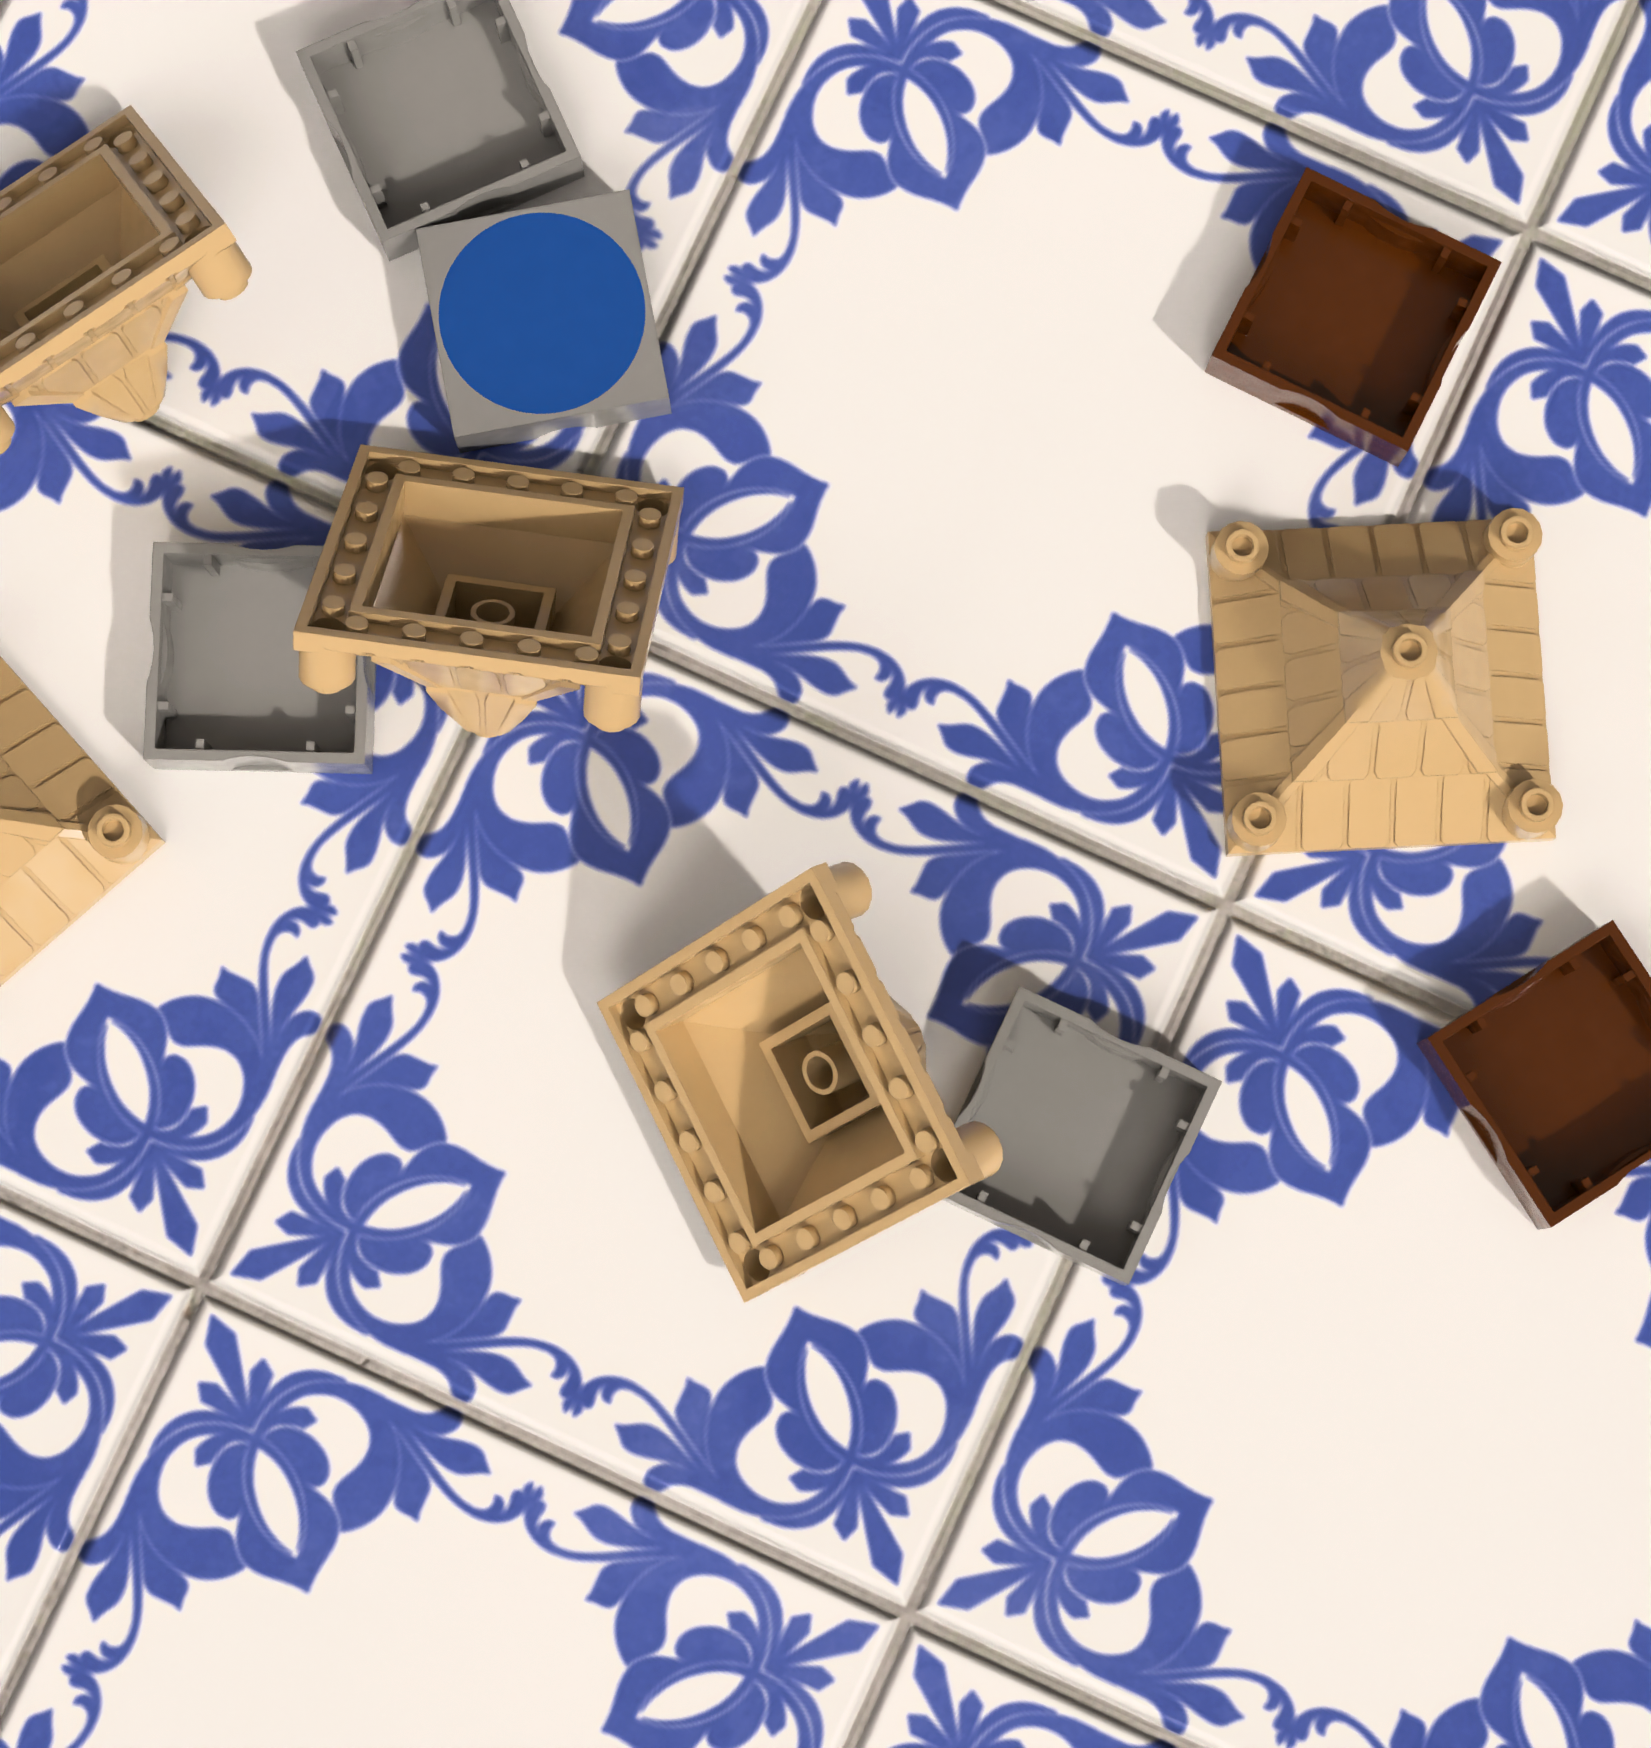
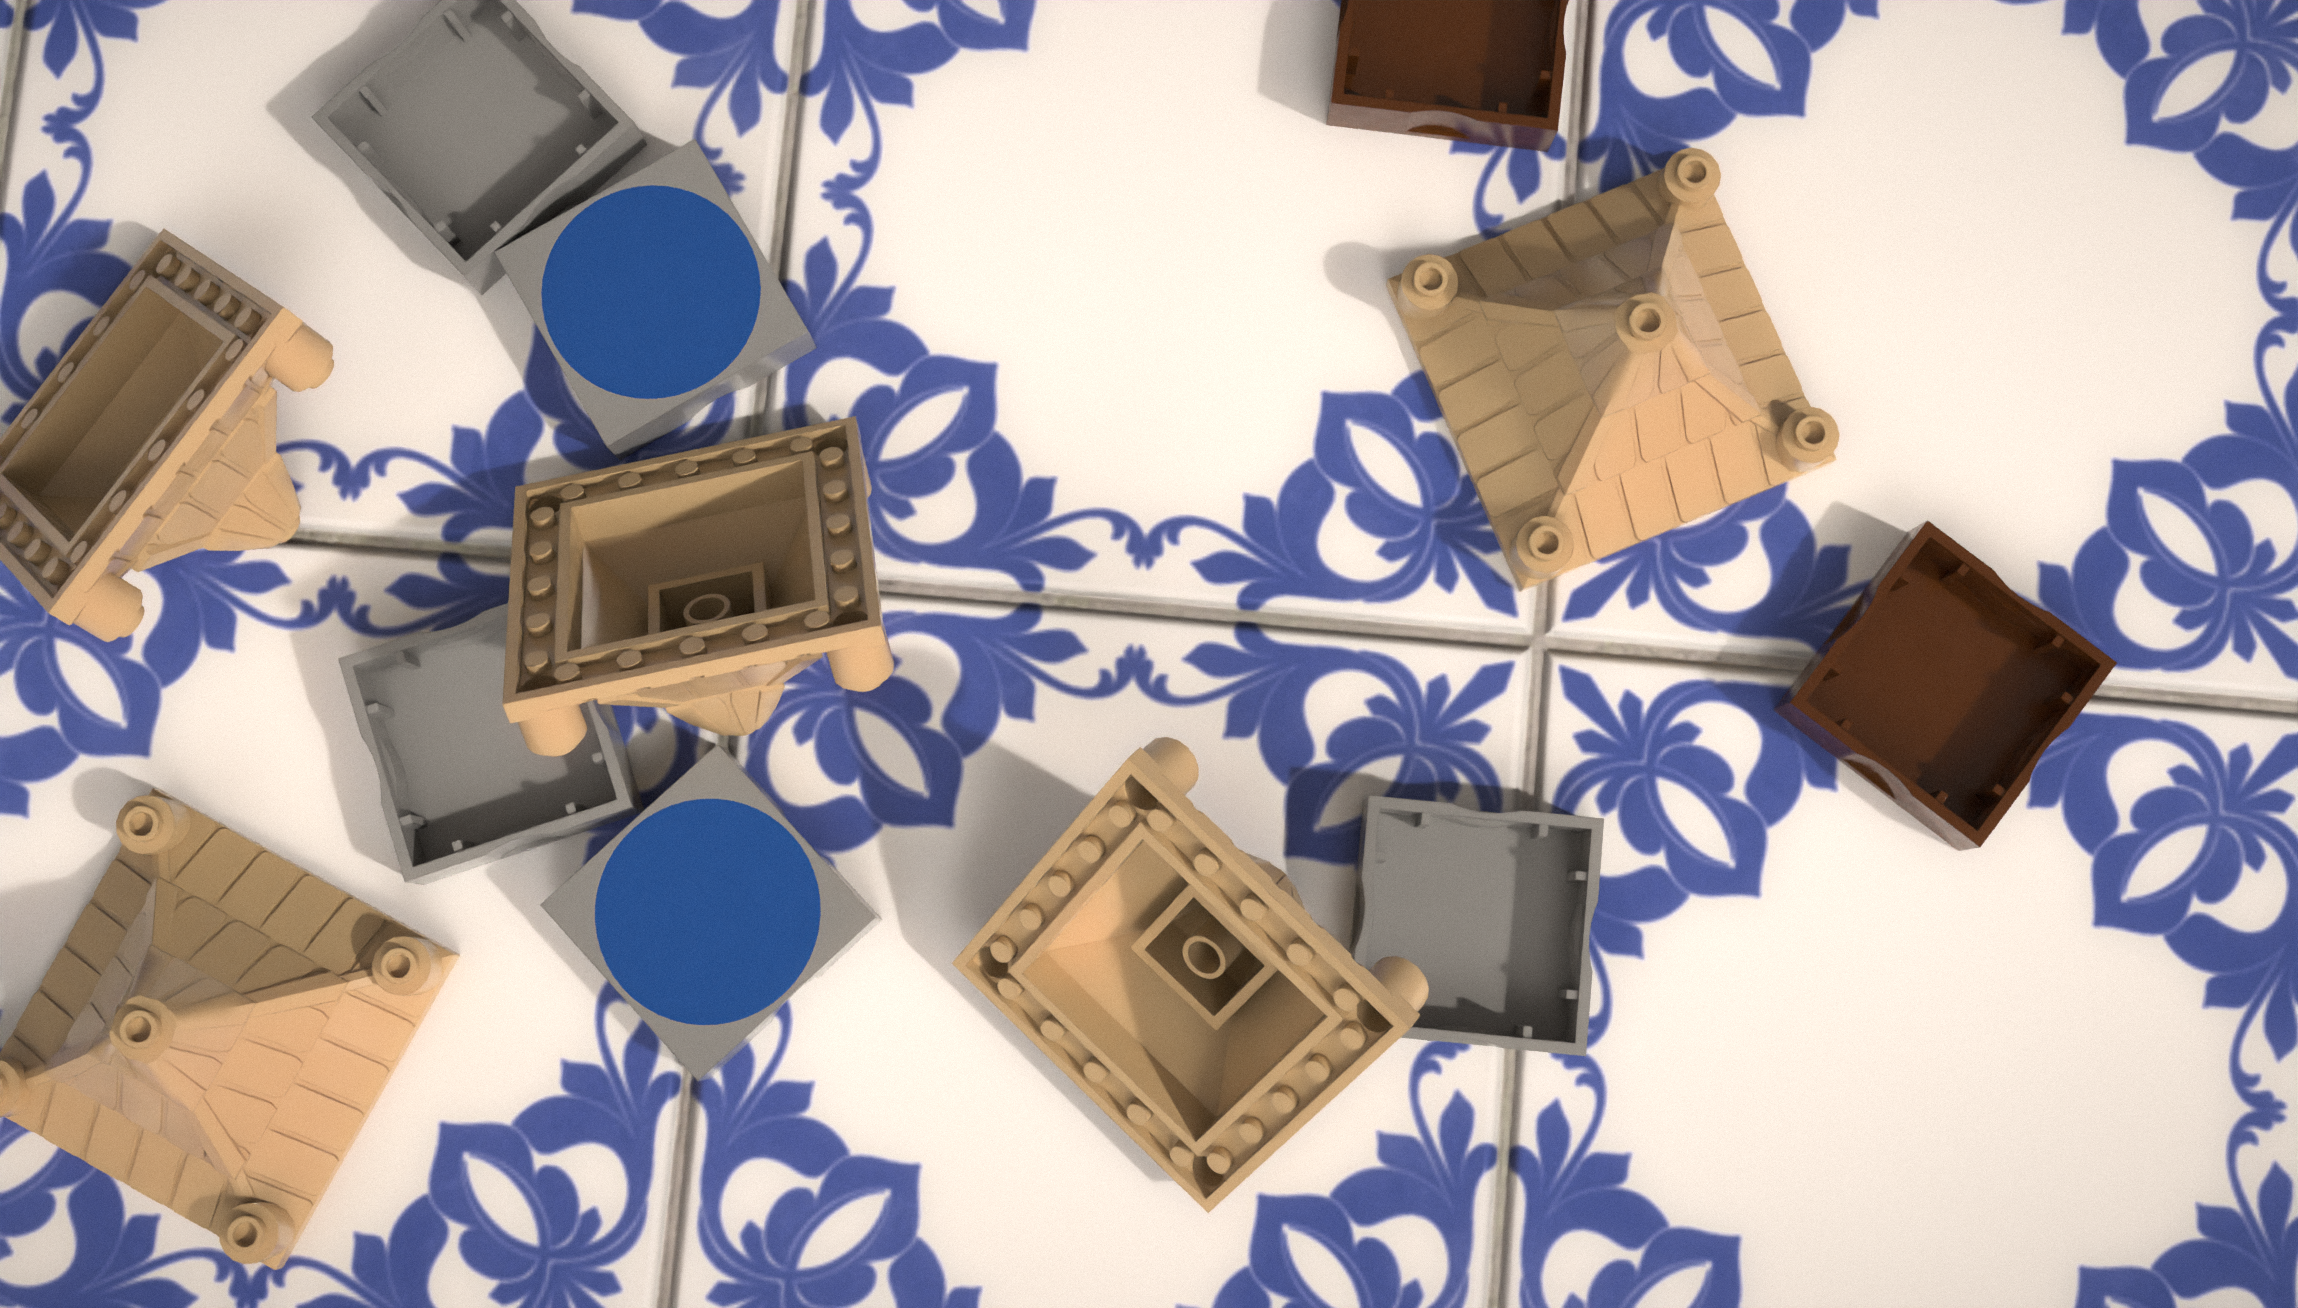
camera: 20 degrees left, 0 degrees up
(400, 883) = (710, 913): none -> blue tile

